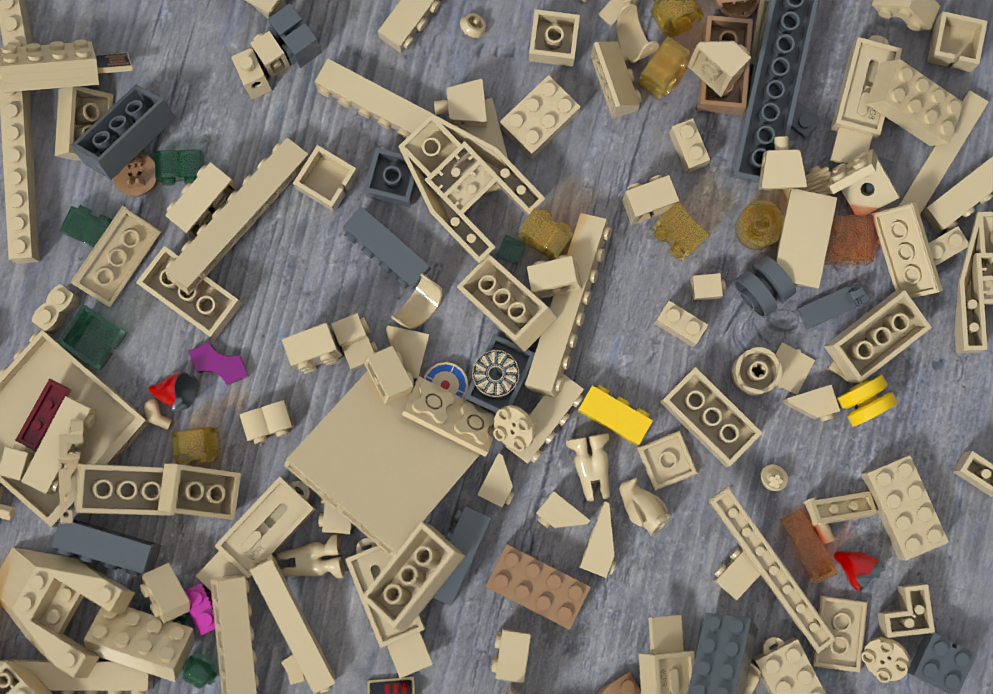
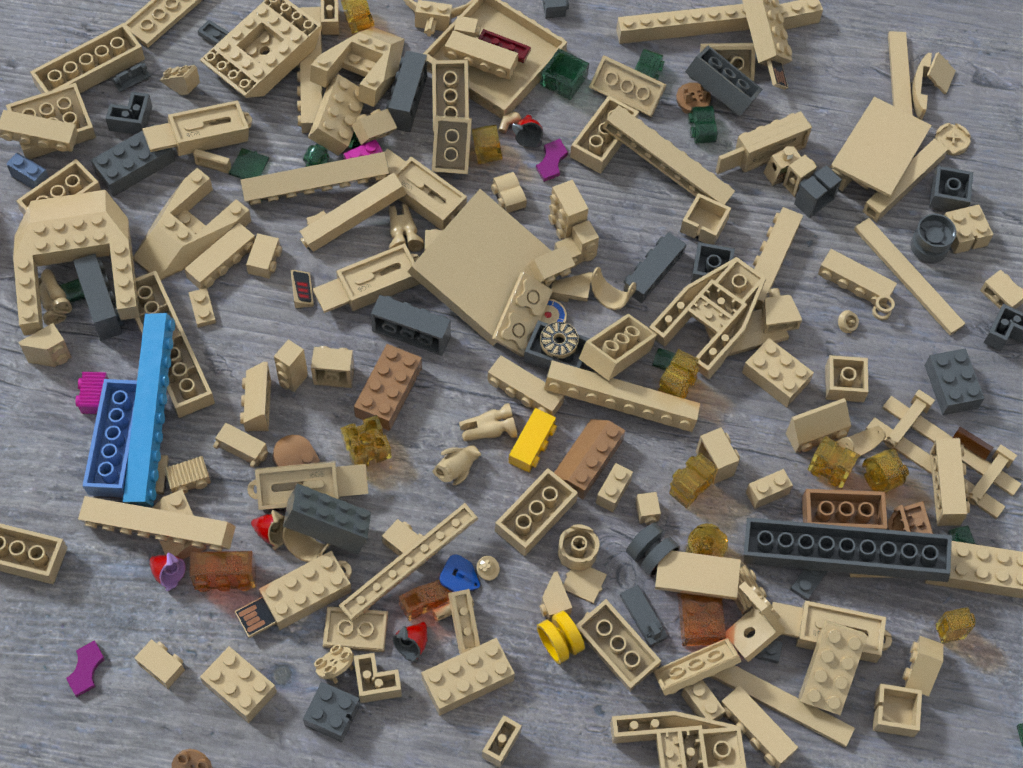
camera: 85 degrees right, 20 degrees down
(58, 305) = (585, 50): tan brick -> none
(72, 461) = (472, 55): tan piece -> none
(201, 200) = (679, 132): tan brick -> none
(217, 85) = (757, 146): none -> tan piece
(413, 576) = (393, 280): tan brick -> none
(497, 484) = (471, 354): tan slope -> none
(514, 427) = (516, 355): tan plate -> none
(554, 277) = (642, 378): tan brick -> none
(559, 513) = (449, 401): tan slope -> none
(600, 549) = (423, 433): tan slope -> none
(626, 623) = (366, 442): none -> clear yellow brick
(638, 351) = (590, 455): none -> medium nougat slope
(667, 460) = (497, 485): tan tile -> none
(719, 64) = (838, 489): tan slope -> none
(782, 167) = (757, 550): tan torso -> none
(783, 505) = (464, 578): none -> blue piece

